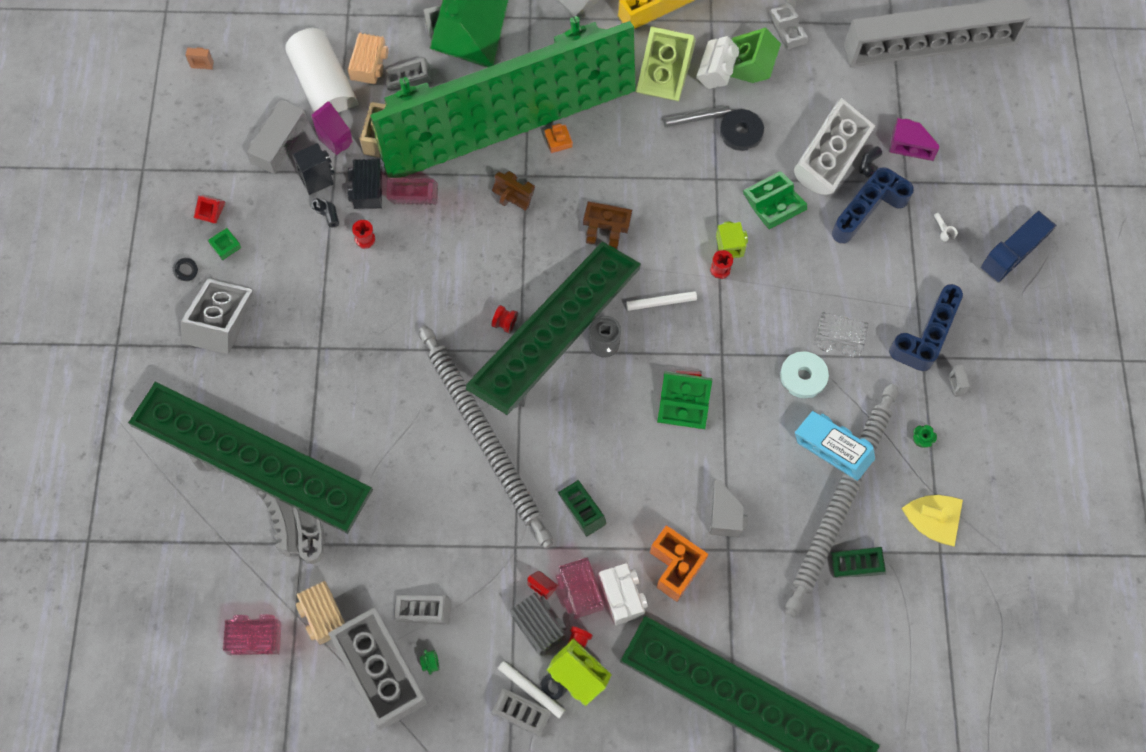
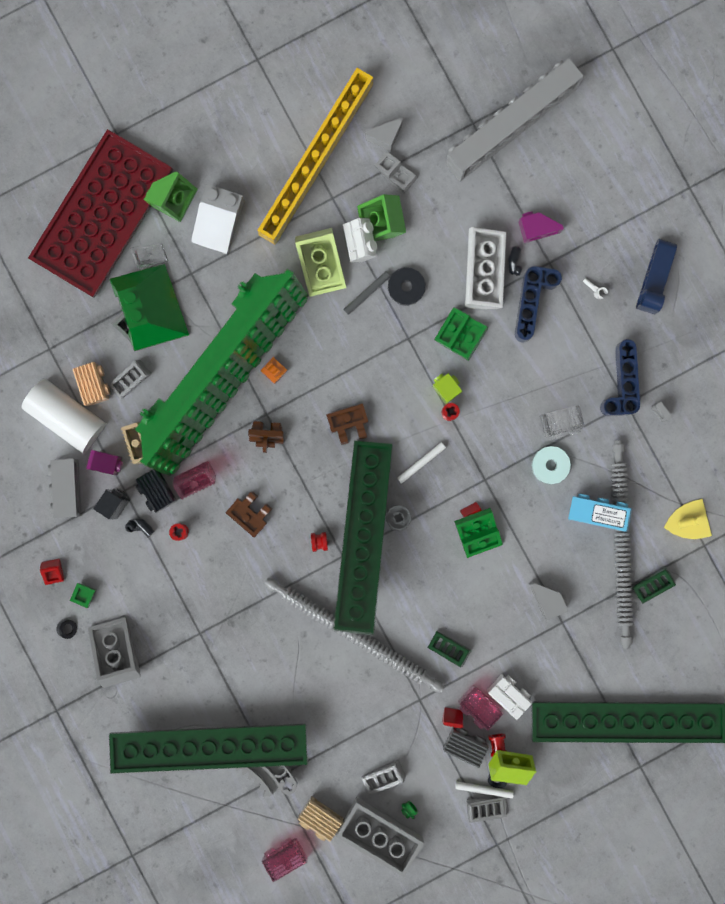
camera: 25 degrees left, 20 degrees up
(443, 258) = (246, 517): none -> reddish brown plate
(683, 562) = (540, 654): orange brick -> none
(918, 437) = (651, 466): green plate -> none

